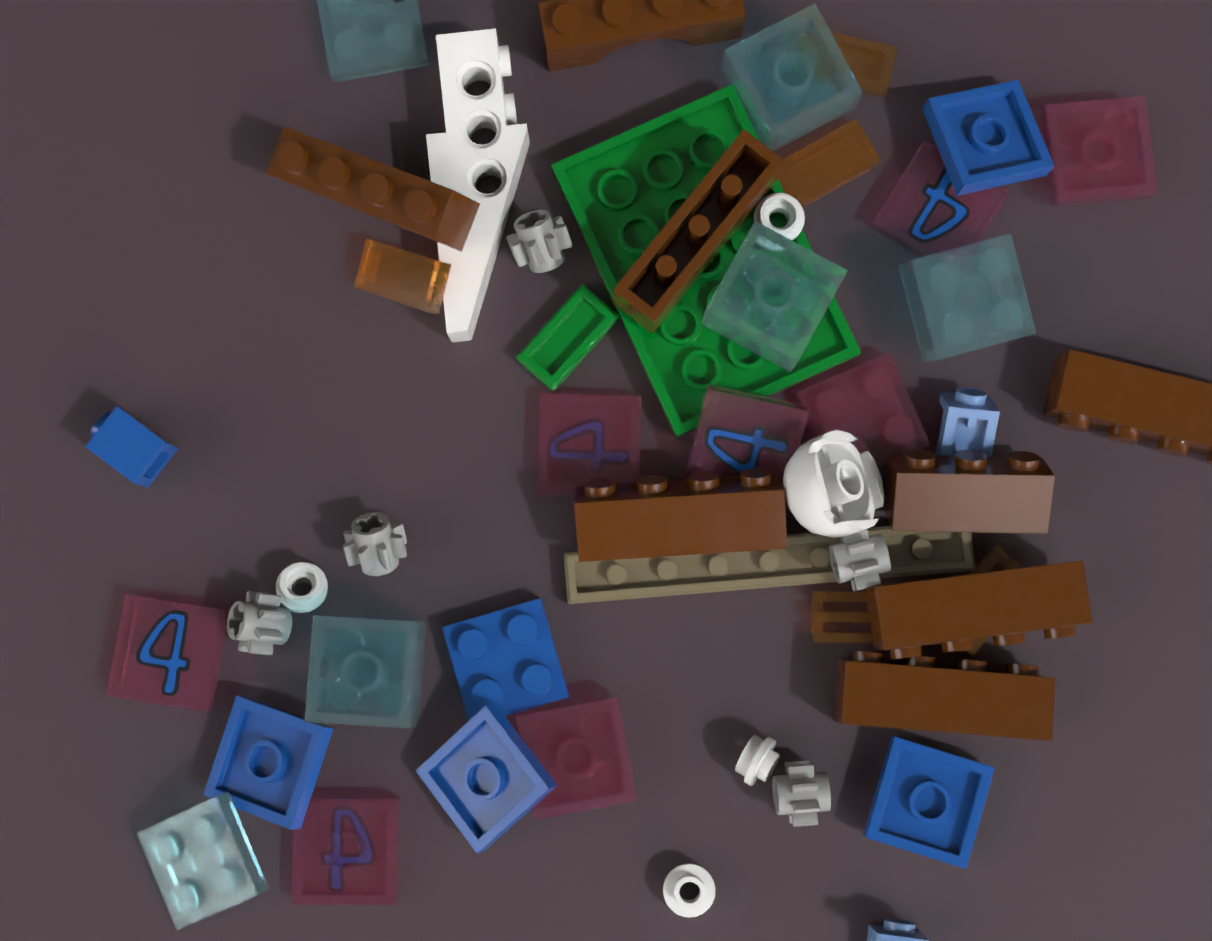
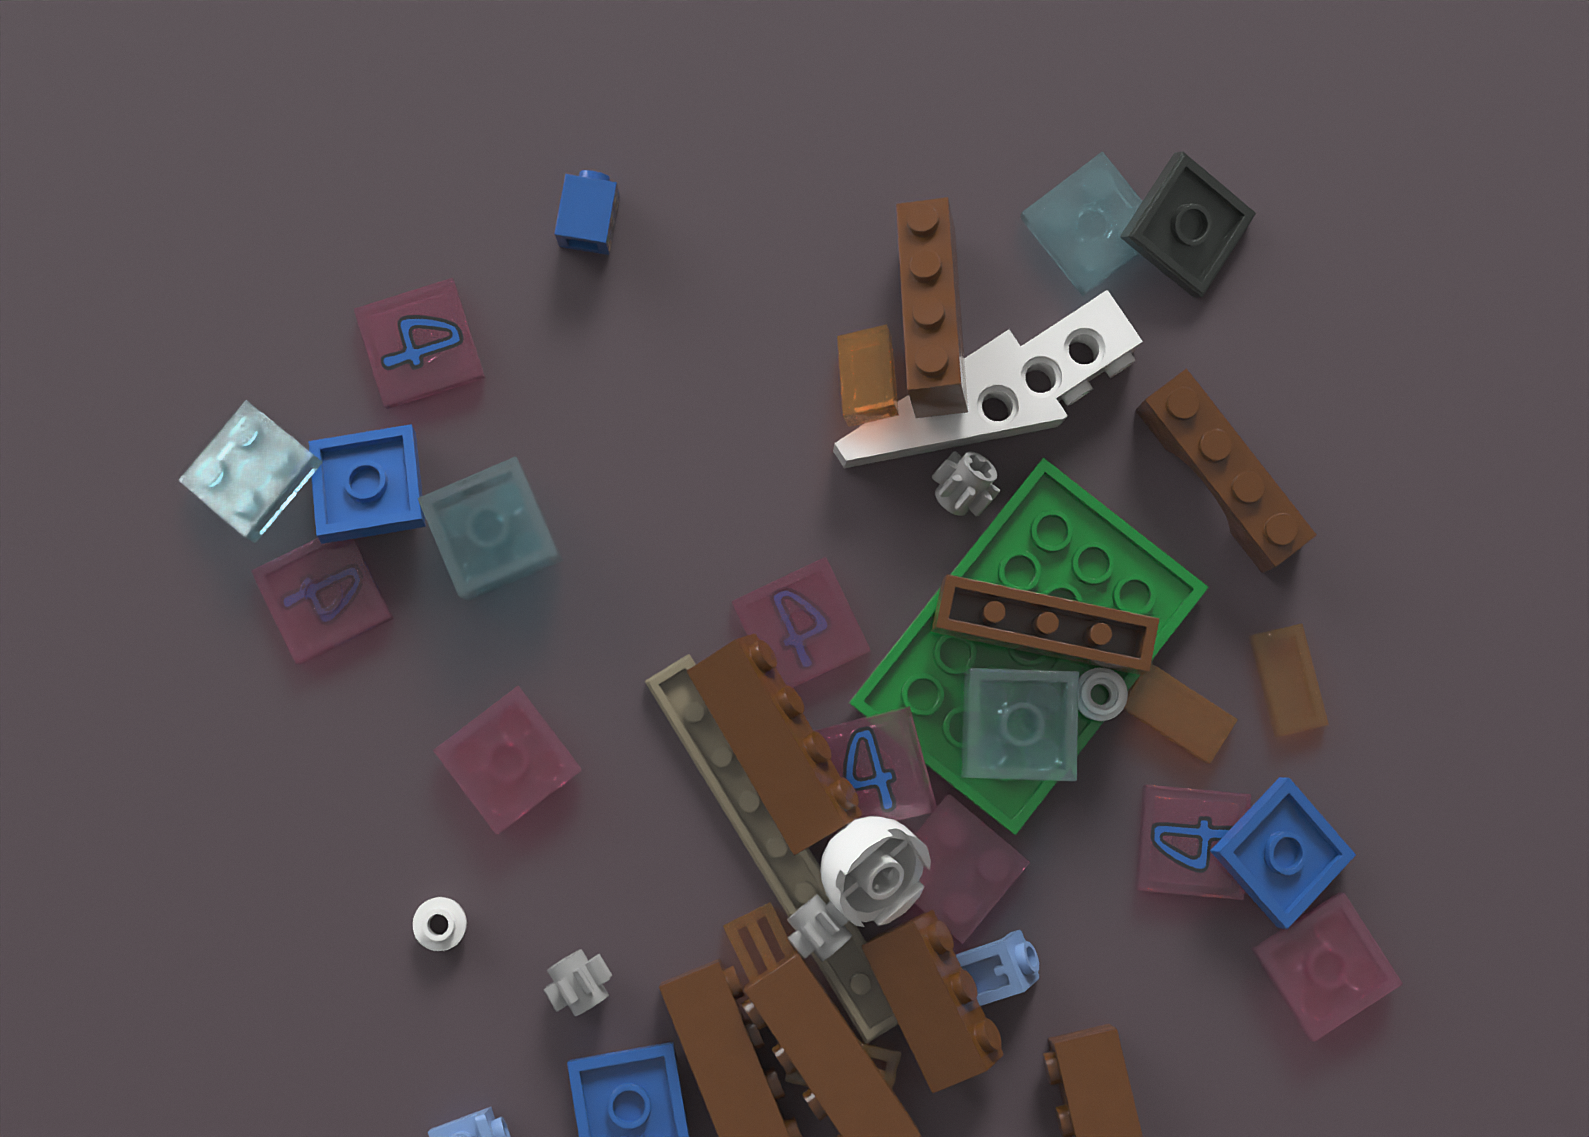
camera: 55 degrees right, 0 degrees up
(259, 623) = (486, 411): light grey gear -> none
(300, 573) = (548, 421): white plate -> none
(375, 544) = (610, 477): light grey gear -> none
(486, 778) = (449, 687): plate -> none
(506, 659) = (563, 651): blue plate -> none
(567, 338) = (891, 555): green tile -> none
(757, 760) = (588, 927): white plate -> none
(791, 78) = (1240, 639): clear light blue brick -> none
(967, 298) = (1116, 909): clear light blue brick -> none

